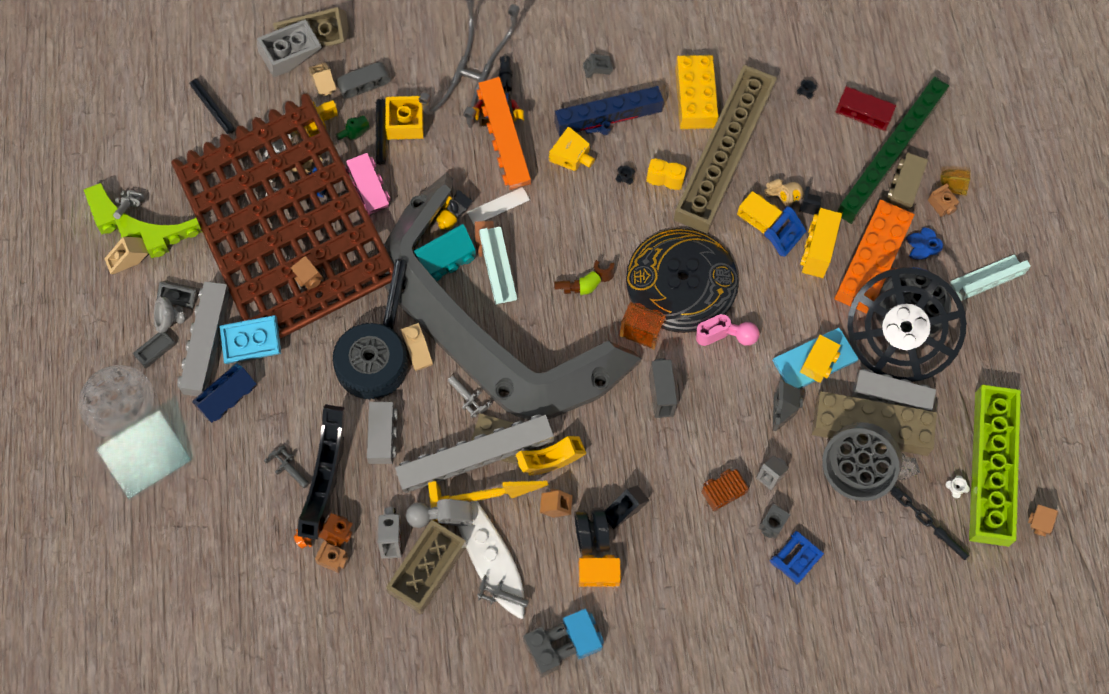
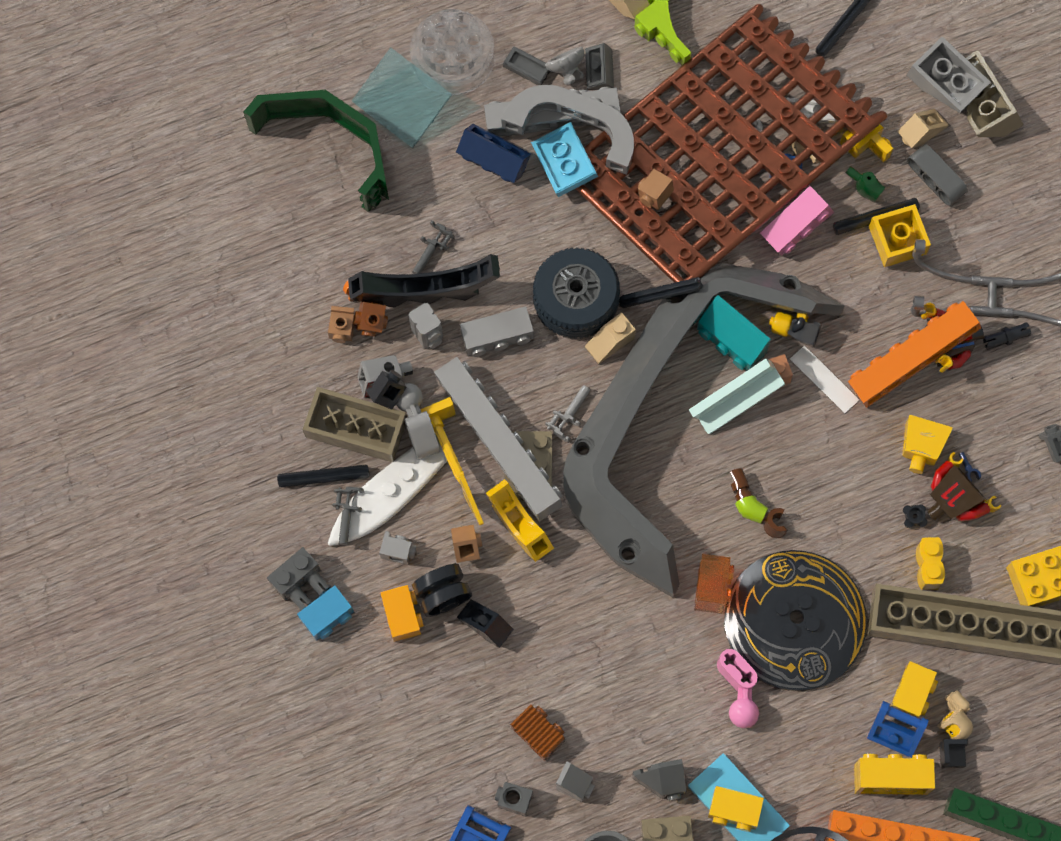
camera: 80 degrees right, 5 degrees up
(145, 503) = (319, 104): none -> dark green panel
(215, 308) = (579, 107): none -> light grey arch
(360, 485) = (426, 326): none -> light grey brick
(409, 527) = (387, 389): none -> black brick
(460, 607) = (323, 475): none -> black axle
(543, 561) = (397, 549): none -> light grey brick
(610, 109) = (995, 472): dark blue brick -> none
(618, 140) = (957, 494): none -> torso
(662, 388) = (639, 627): dark grey brick -> none

